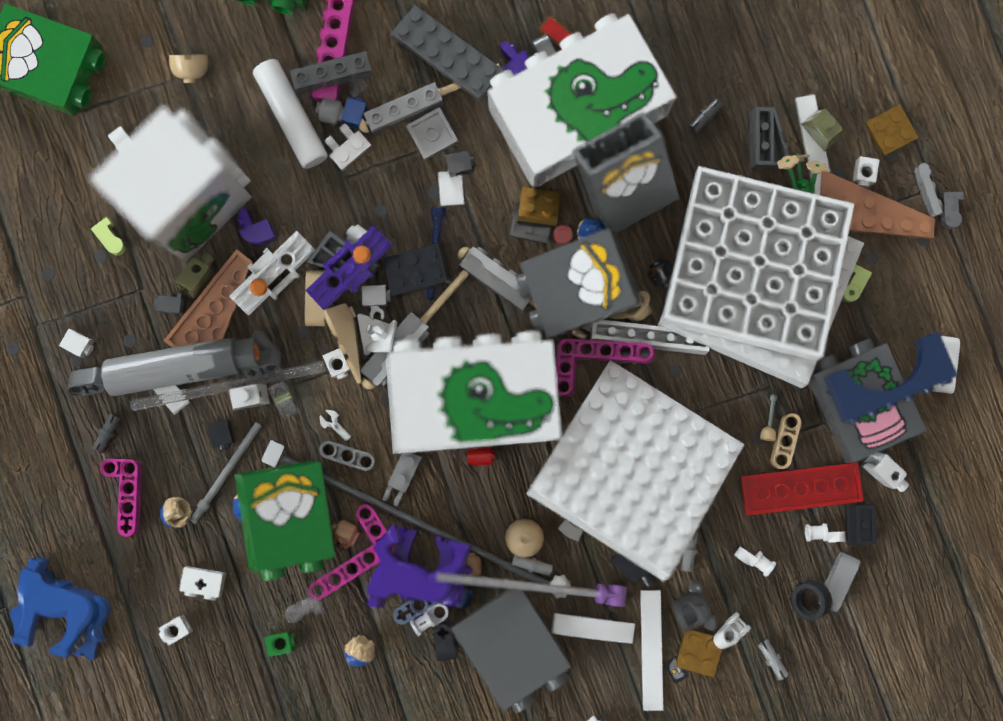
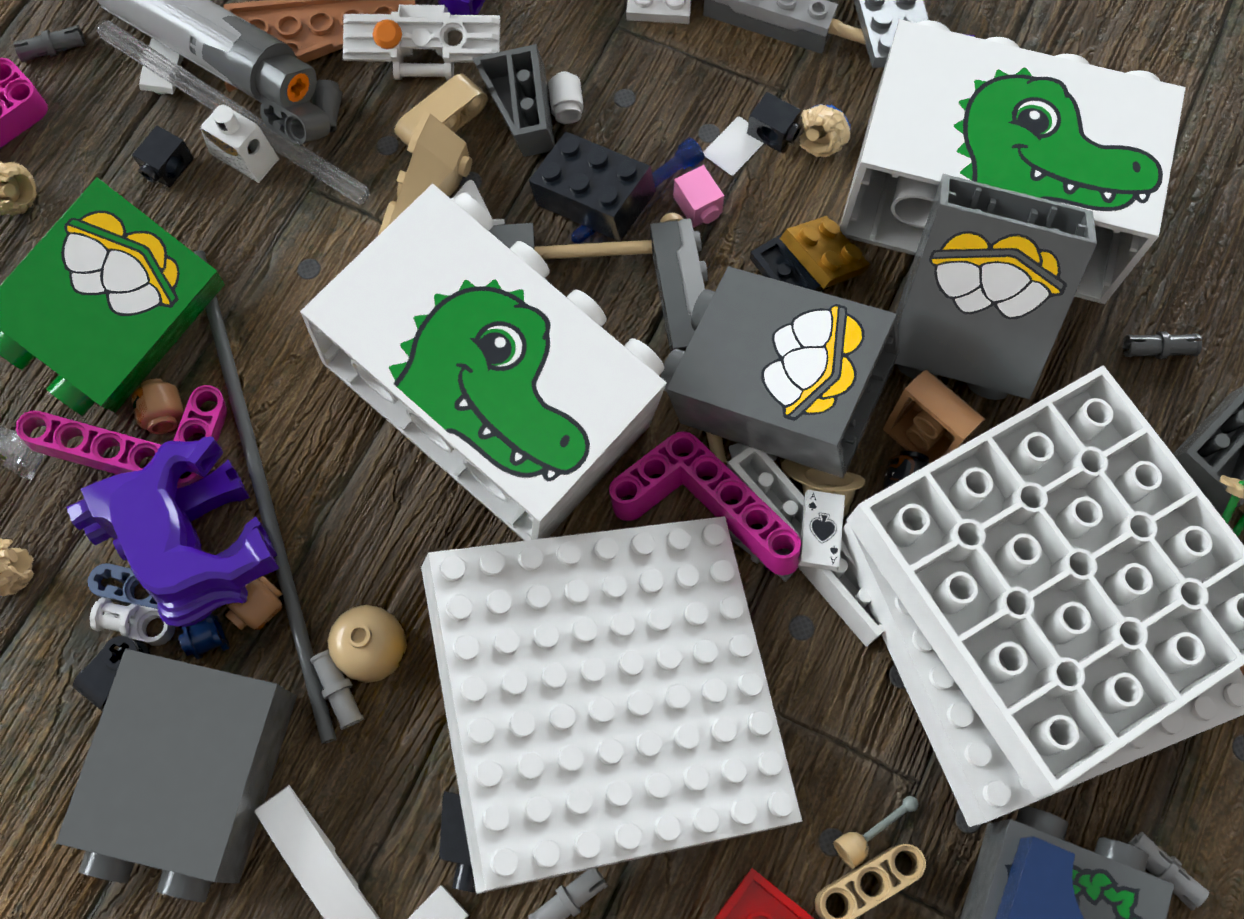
camera: 45 degrees right, 15 degrees down
(204, 504) = (50, 215): light grey bar -> none
(272, 453) = (197, 237): white sticker -> none
(283, 399) = (275, 184): clear leg -> none
(330, 358) = (377, 192): white brick -> none
(335, 425) = (300, 272): white bar -> none
(337, 455) = (263, 306): light grey beam -> none
(353, 272) = (511, 94): dark purple piece -> none
(375, 297) = (506, 175): light grey brick -> none
(402, 475) = (305, 410): light grey hinge -> none
(432, 133) = (775, 65): light grey plate -> none
(463, 230) = (698, 196): none -> bright pink brick
(481, 455) = (427, 478): red brick -> none
(485, 148) = (824, 130): none -> tan piece
(562, 581) = (339, 758): white piece -> none
(570, 530) = (432, 697): light grey piece -> none
(613, 594) = (397, 849): flat silver piece -> none
(652, 243) = (932, 418): none -> medium nougat brick
(652, 331) = (821, 530): none -> white tile
(856, 284) = (1178, 763): yellowish green leg -> none
(881, 333) = (1170, 870): none -> light grey pin

